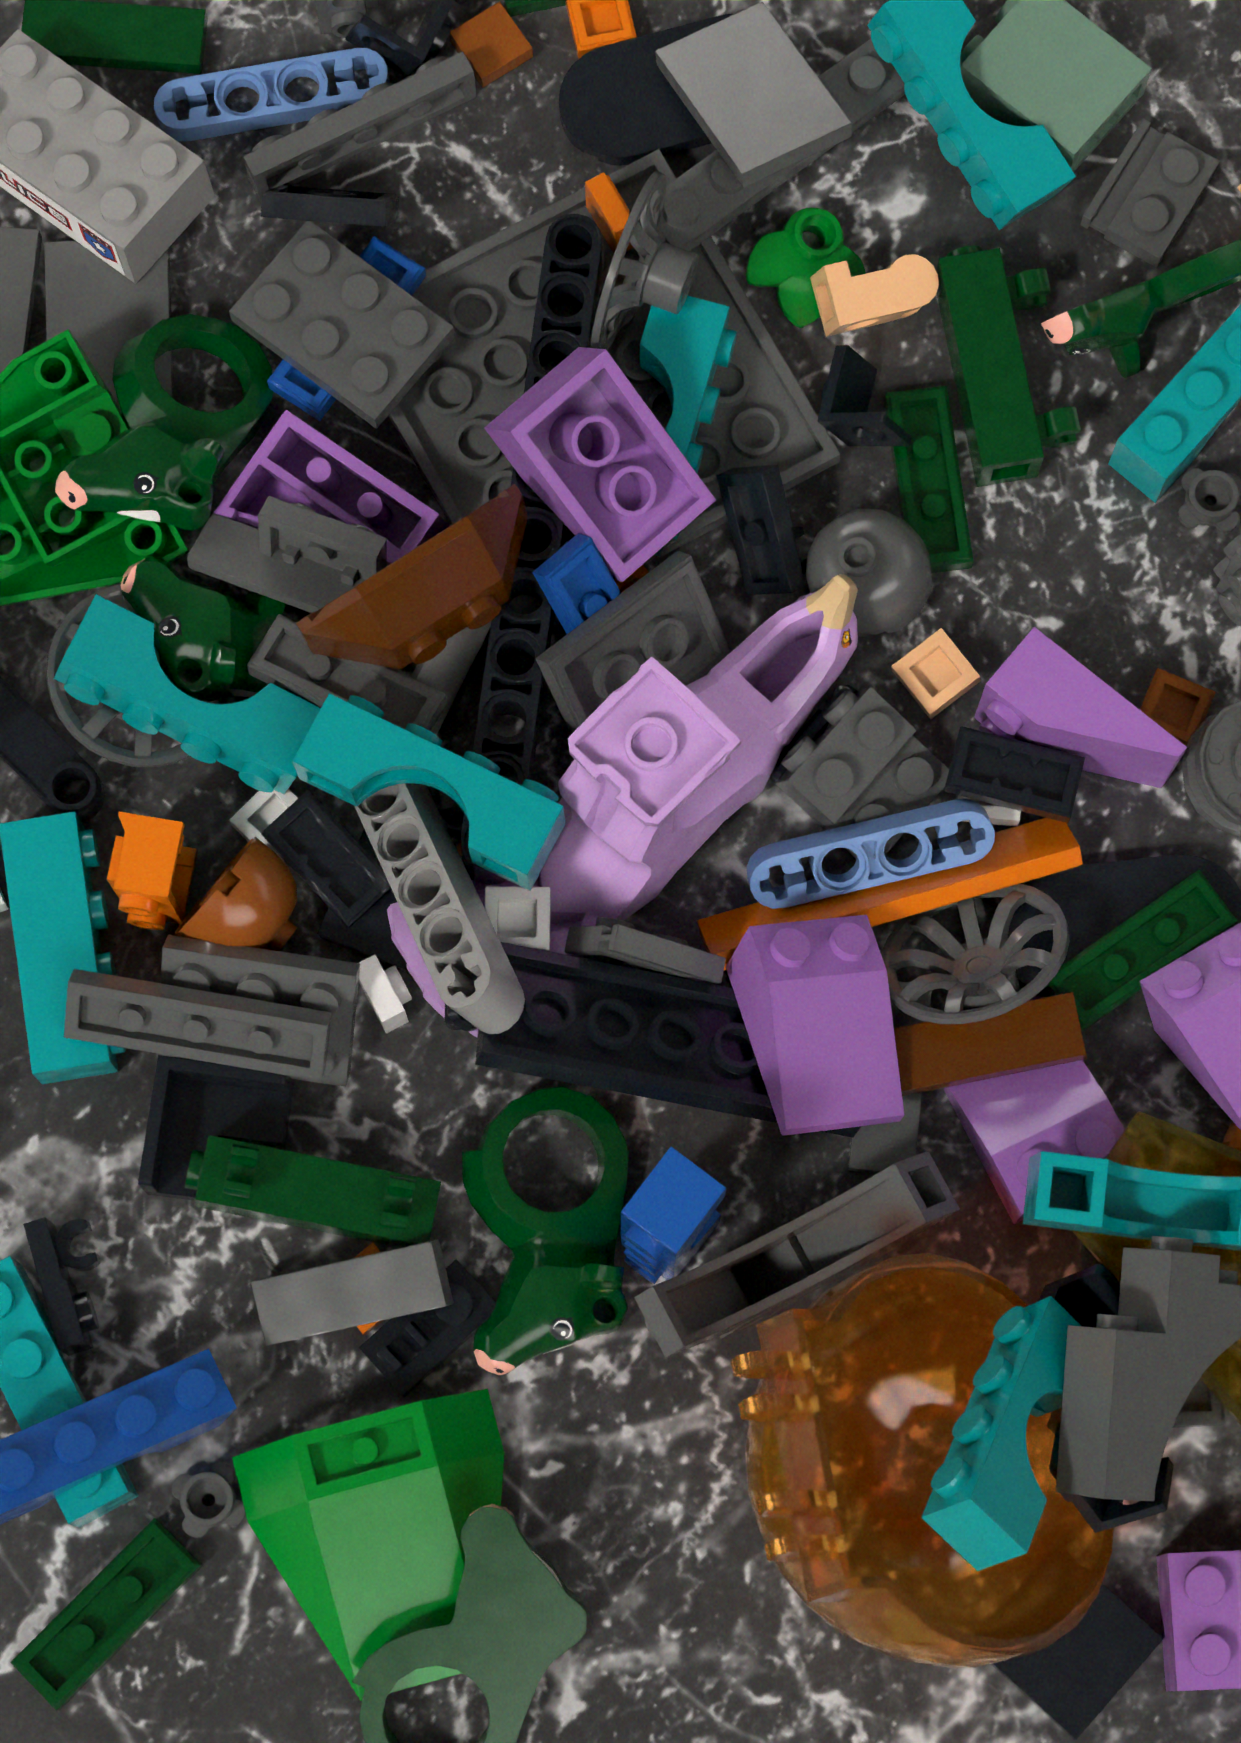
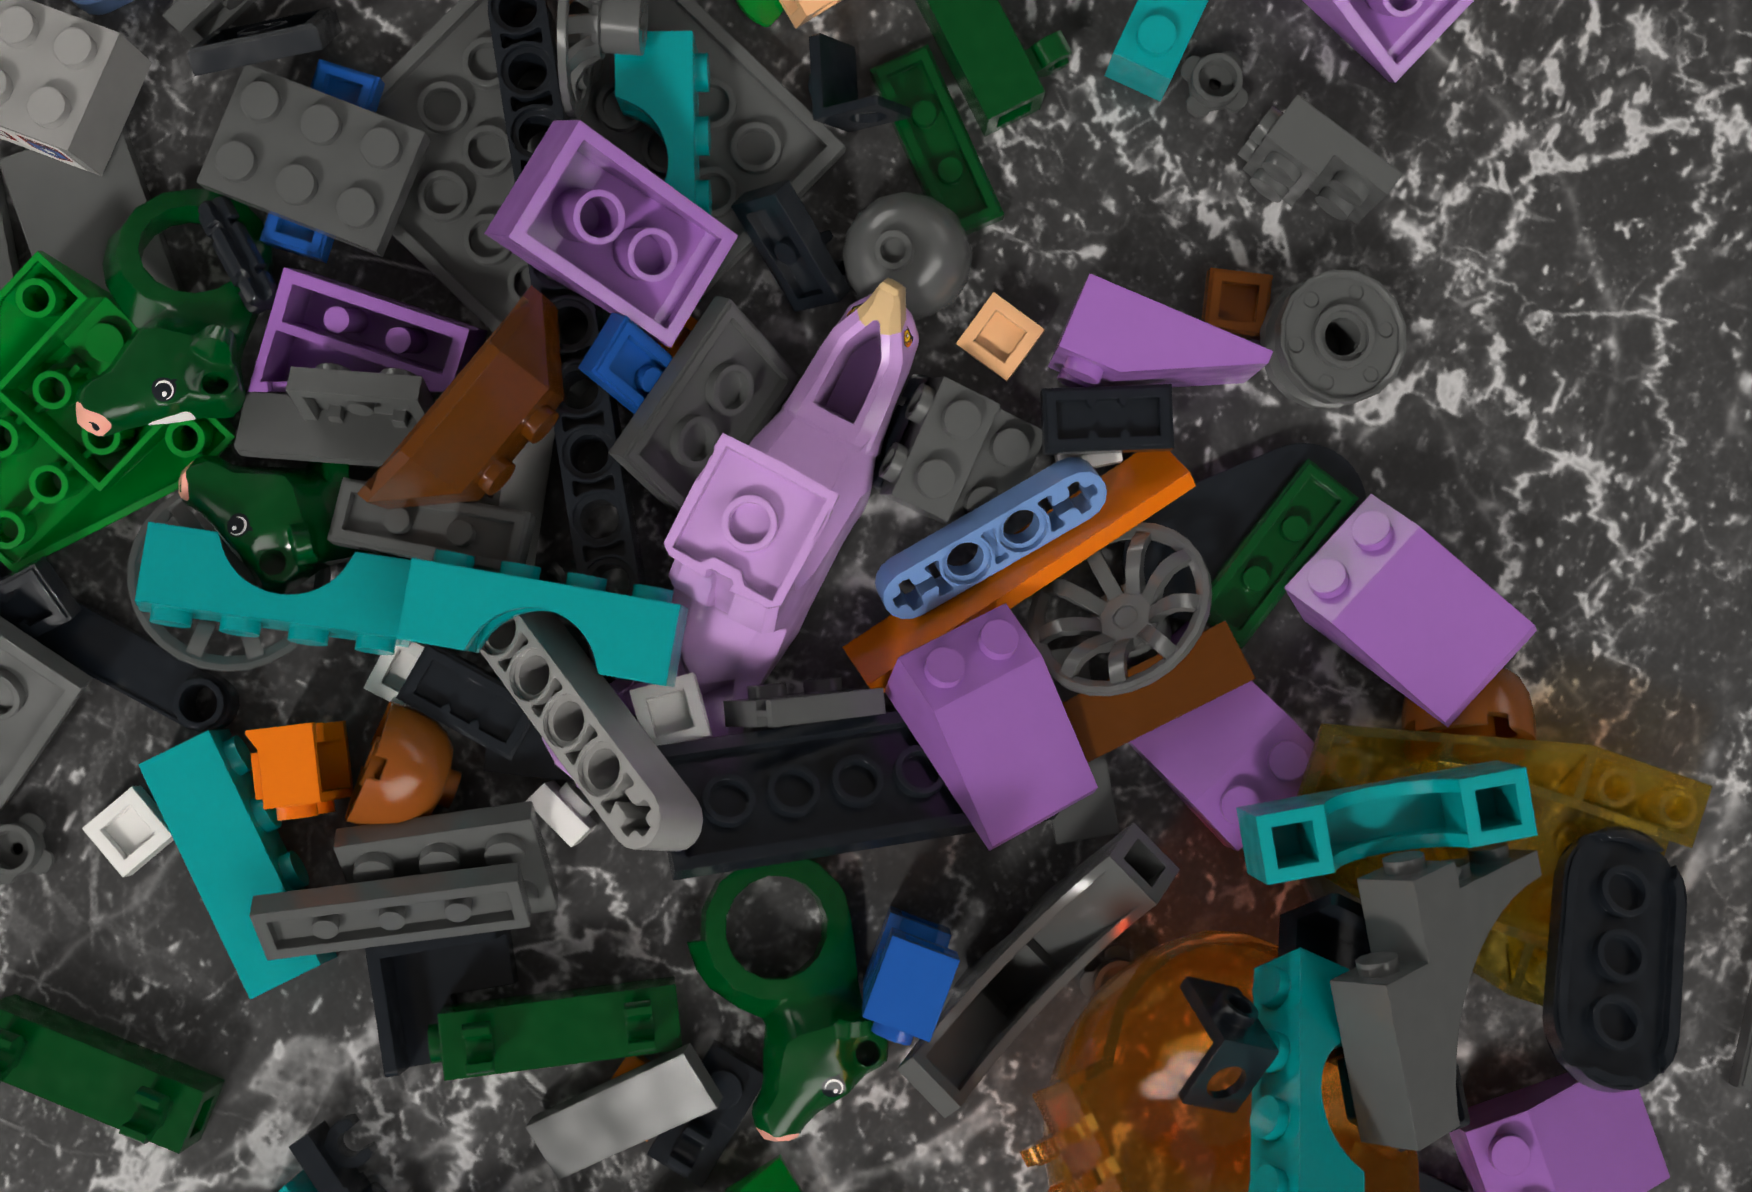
camera: 20 degrees left, 10 degrees up
(244, 387) = (238, 254): none -> black axle
(960, 1344) = (1237, 1042): none -> black bracket

